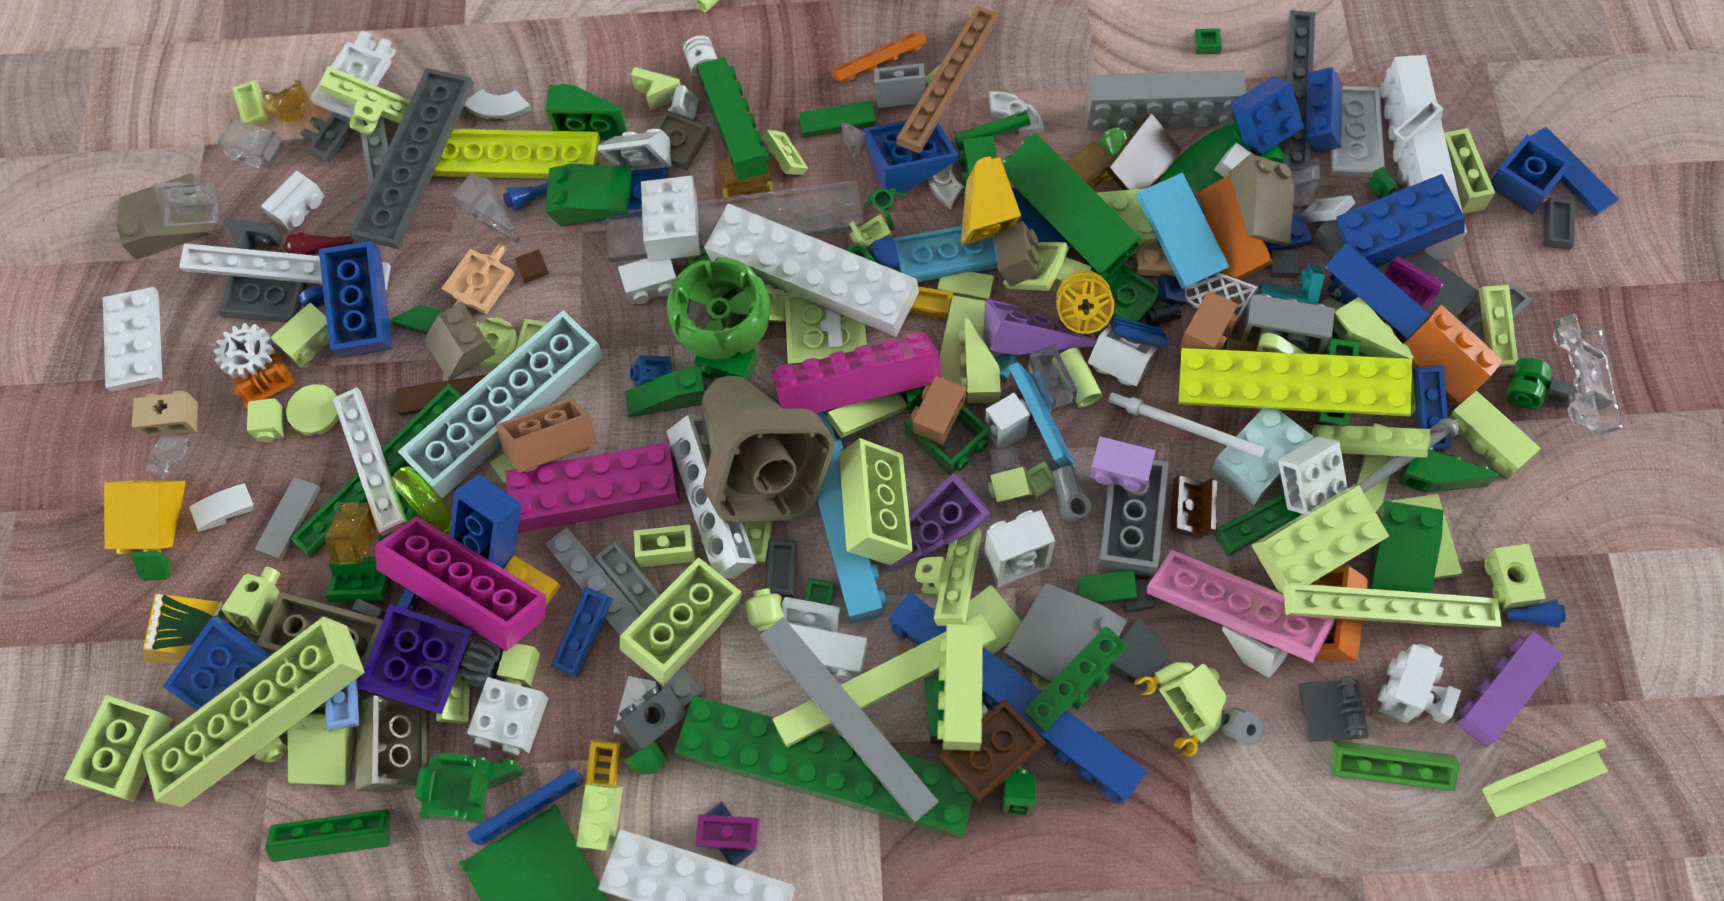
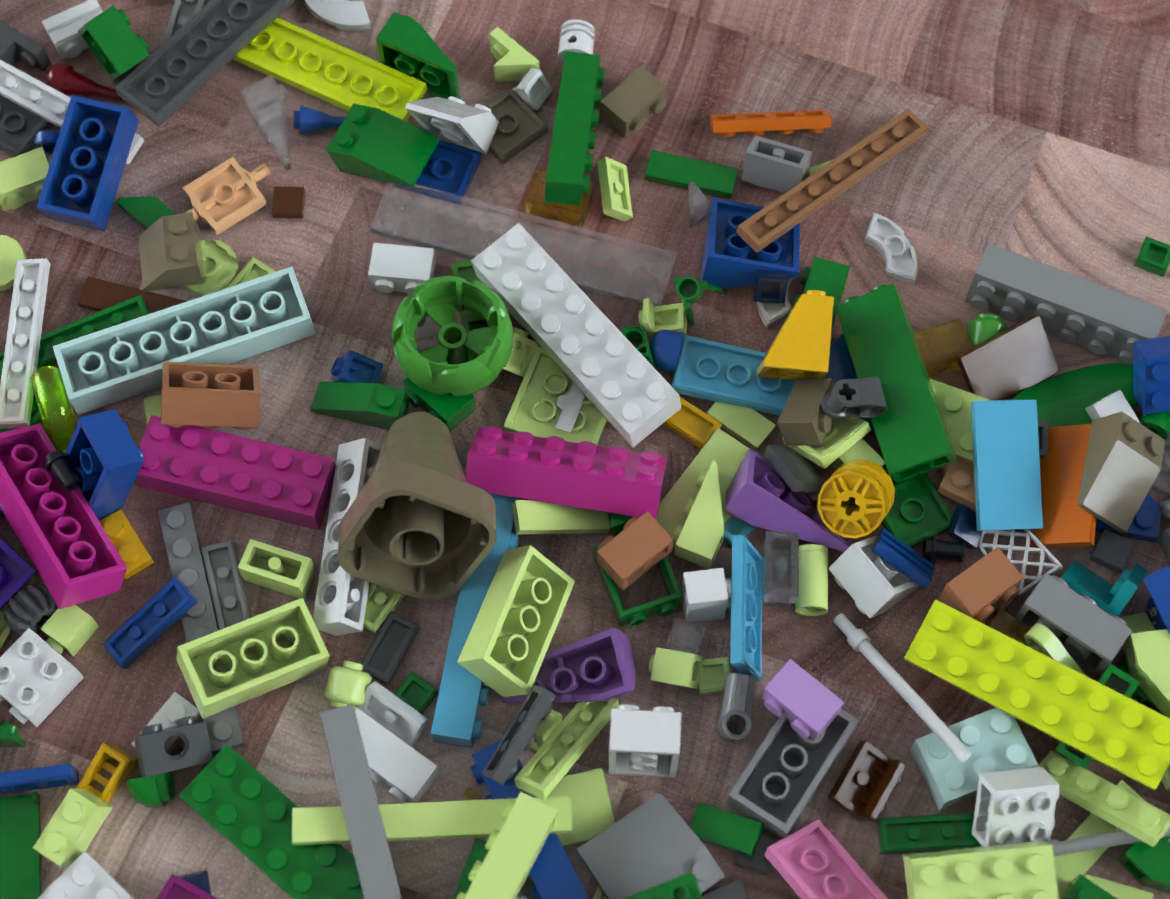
camera: 20 degrees right, 0 degrees up
(331, 197) = (114, 41): none -> green brick
(450, 539) = (59, 465): none -> black pin
(670, 218) = (452, 213): white brick -> none
(767, 82) = (634, 102): none -> dark tan brick
(921, 585) = (519, 735): none -> dark grey plate
(941, 175) = (770, 286): none -> dark blue tile
(994, 128) = (857, 257): green pin -> none
(1027, 301) = (795, 470): none -> dark grey slope
(1049, 227) = (855, 399): none -> dark grey piece

